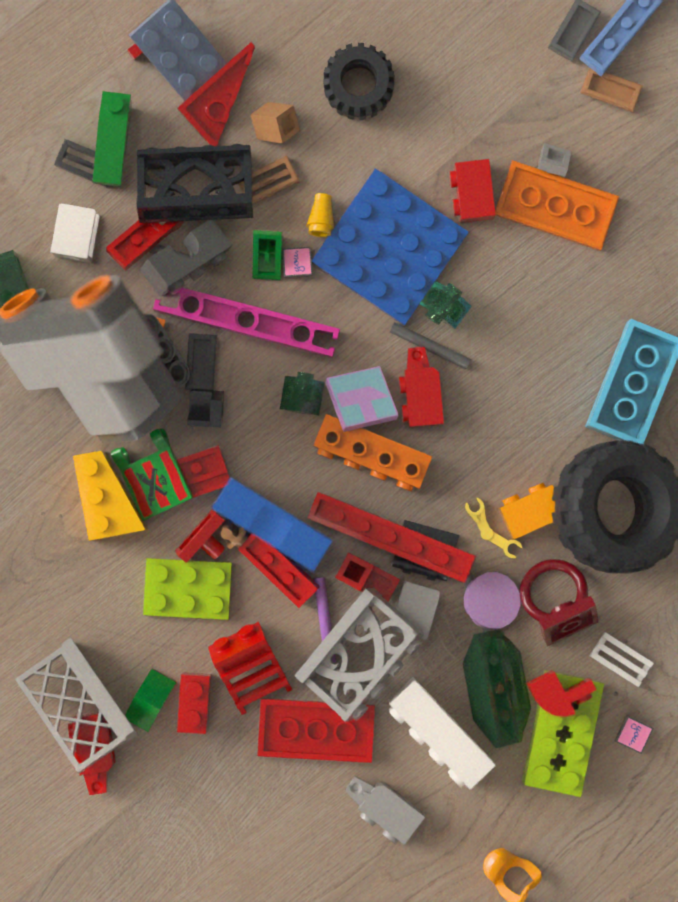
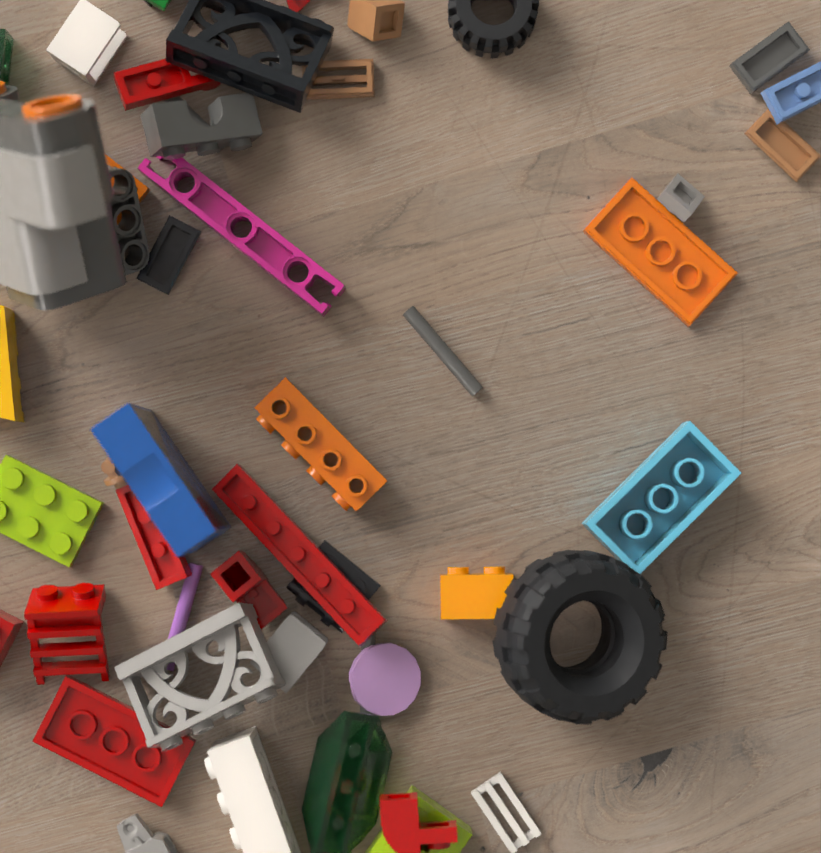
camera: 20 degrees right, 0 degrees up
(154, 480) = (54, 368): flag -> none
(202, 538) = (80, 460): red tile -> none
(205, 408) = (150, 311): black panel -> none
(205, 471) = (107, 382): red plate -> none
(267, 254) = (299, 163): green slope -> none
(297, 262) = (331, 187): bright pink tile -> none
(302, 394) = (268, 342): clear green brick -> none
(321, 216) = (381, 146): yellow cone -> none
(361, 398) = (334, 378): tile -> none
(389, 247) = (445, 216): blue plate -> none
(422, 391) = (409, 398): red hinge -> none
(445, 304) = (480, 310): clear green brick -> none
(473, 191) = (571, 192): red brick -> none
(486, 532) = (414, 598): light yellow piece -> none
(567, 617) = (462, 737): dark red tile -> none

